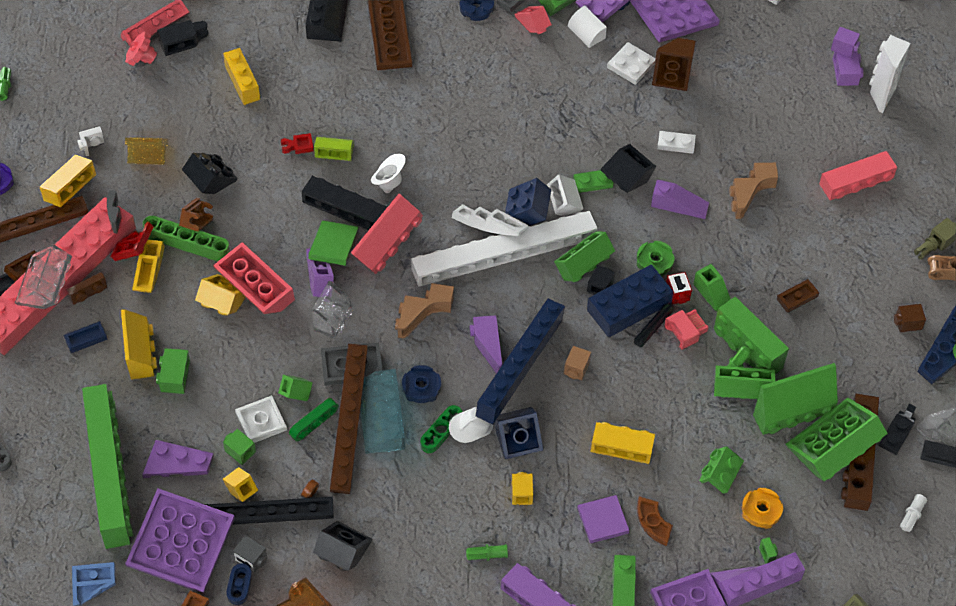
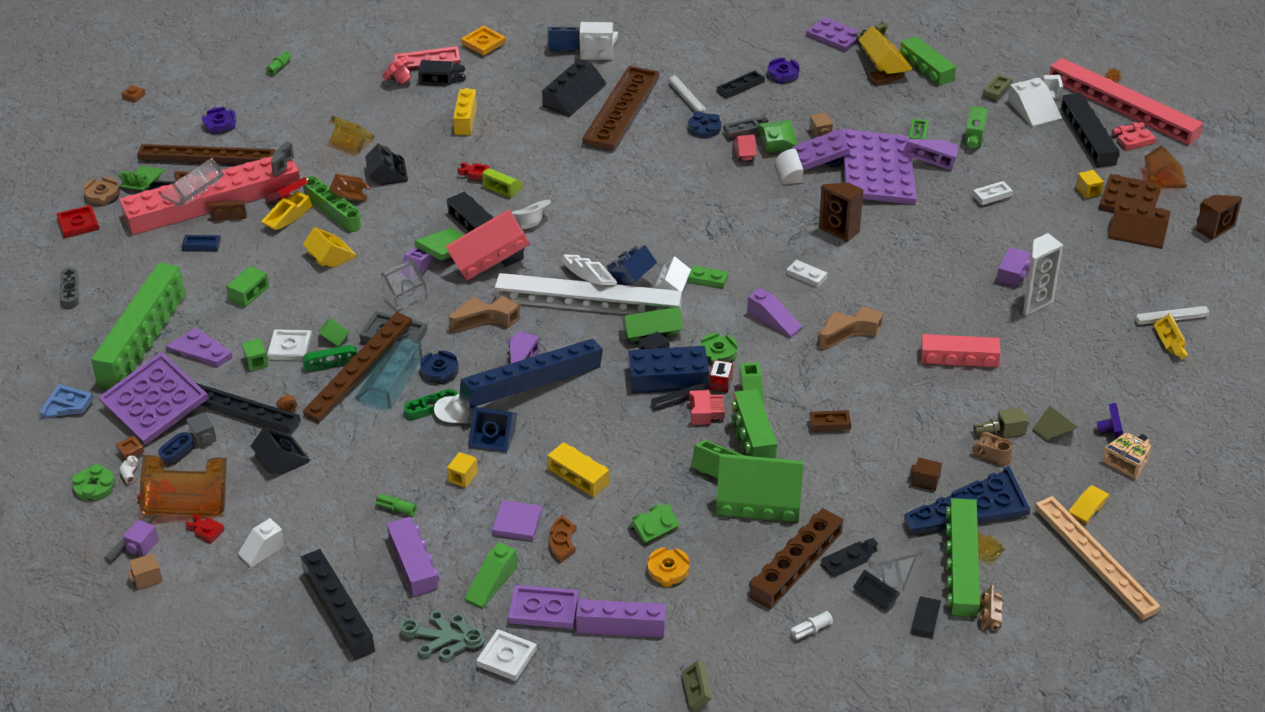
camera: 30 degrees right, 15 degrees down
(67, 180) = (270, 135): yellow brick -> none
(90, 138) = (312, 115): white bracket -> none
(138, 345) = (231, 255): yellow slope -> none
(240, 484) = (232, 378): yellow brick -> none
(255, 280) = (359, 246): coral slope -> none
(577, 363) = (585, 398): medium nougat brick -> none
(628, 168) = (742, 273): black slope -> none
(631, 63) = (806, 205): white plate -> none
(740, 357) = (731, 439): bright green axle -> none
(768, 550) = (646, 594): bright green plate -> none
(837, 438) = (774, 535): bright green slope -> none
(845, 42) = (1018, 242): medium lavender brick -> none

